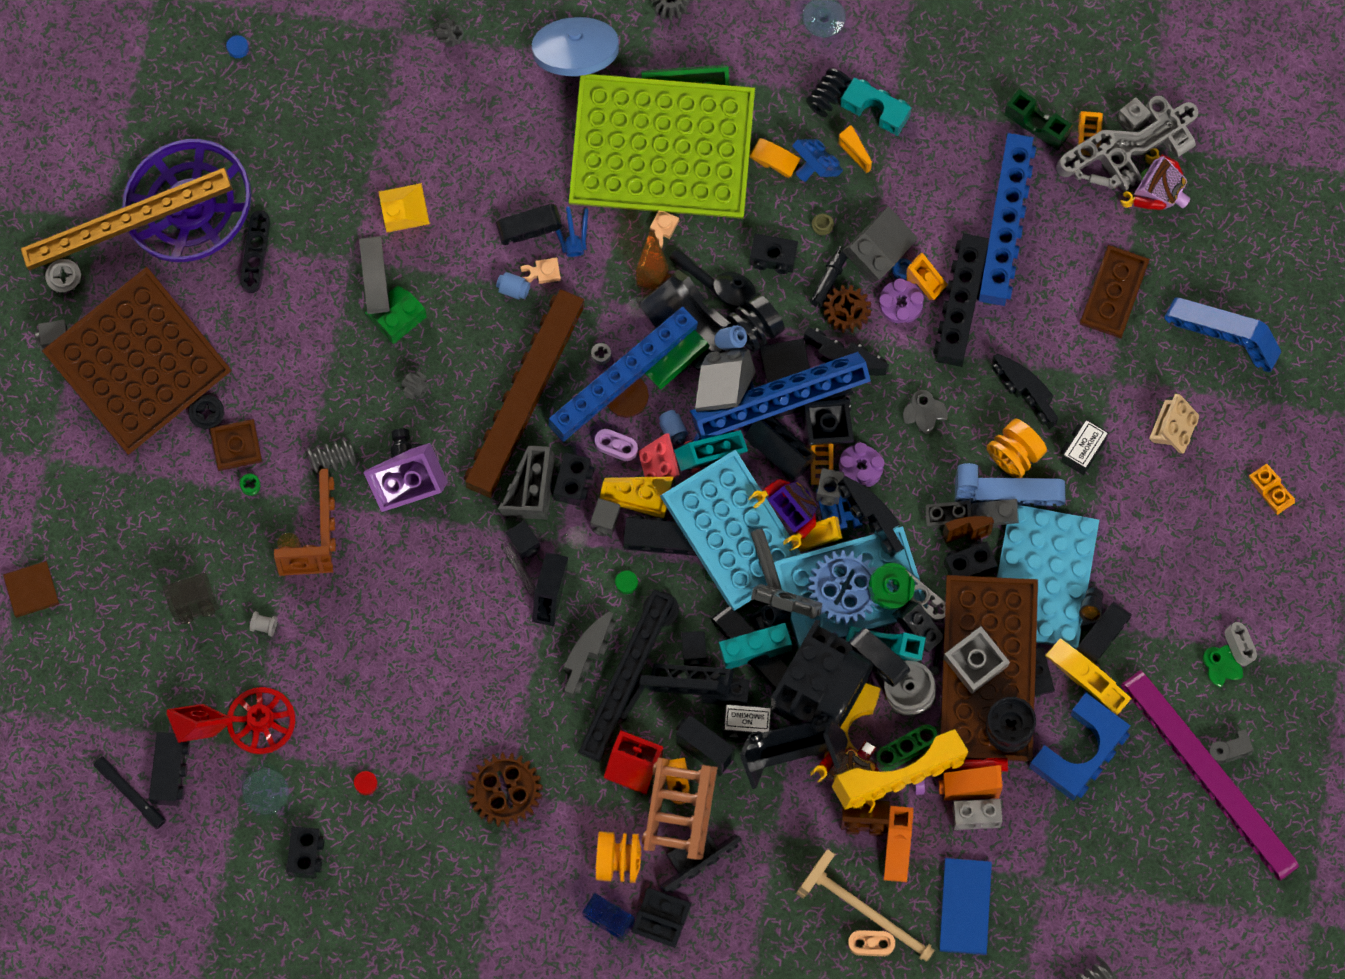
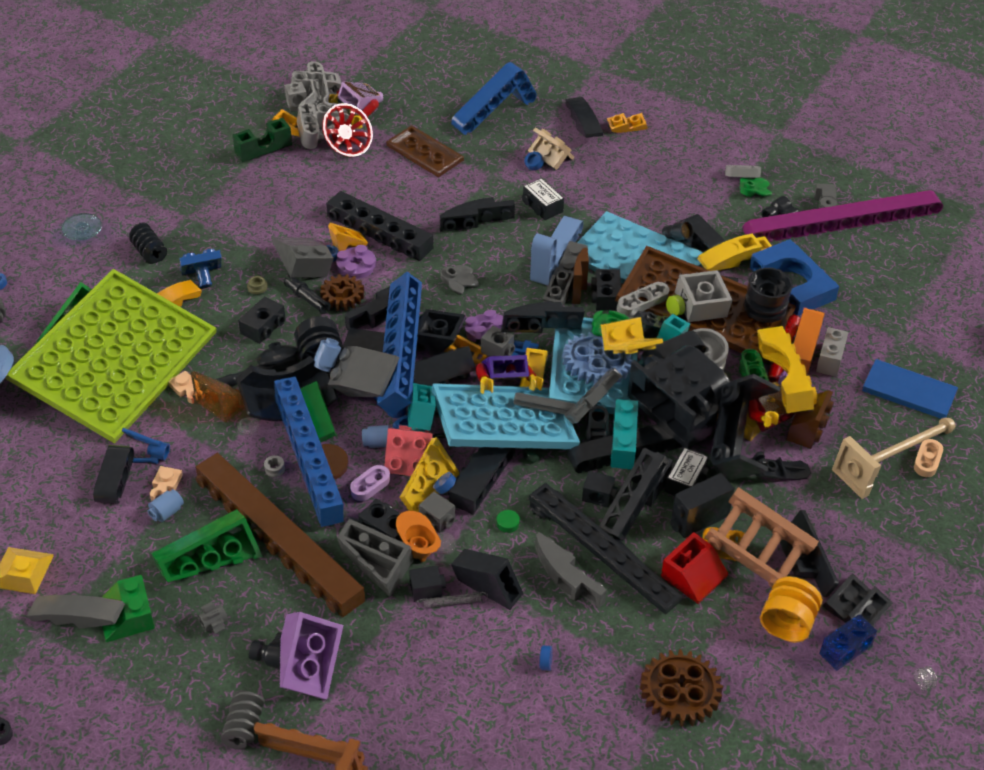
camera: 70 degrees left, 25 degrees down
(480, 344) = (212, 546): none -> green wedge
(489, 669) = (546, 658): none -> blue tile
(566, 510) = (418, 533): none -> orange piece
(635, 509) = (444, 483): none -> blue tile
(796, 807) = (782, 469): none -> black piece
(854, 148) = (198, 241): light orange slope -> none
(862, 95) = (193, 214): teal arch -> none
(866, 607) = (626, 336): none -> yellow bracket
(898, 843) = (846, 408): orange slope -> none
(951, 612) = (647, 292): none -> light grey beam
(954, 638) = (675, 305): none -> lime tile
(1016, 448) = (522, 224): light orange wheel -> none
(1021, 147) = (323, 178): blue brick -> none
(1091, 197) = (345, 132): none -> wheel
(1149, 413) = (534, 161): none -> blue tile
(1191, 702) = (778, 207): none -> black piece
(1252, 438) = (584, 117): none -> black slope

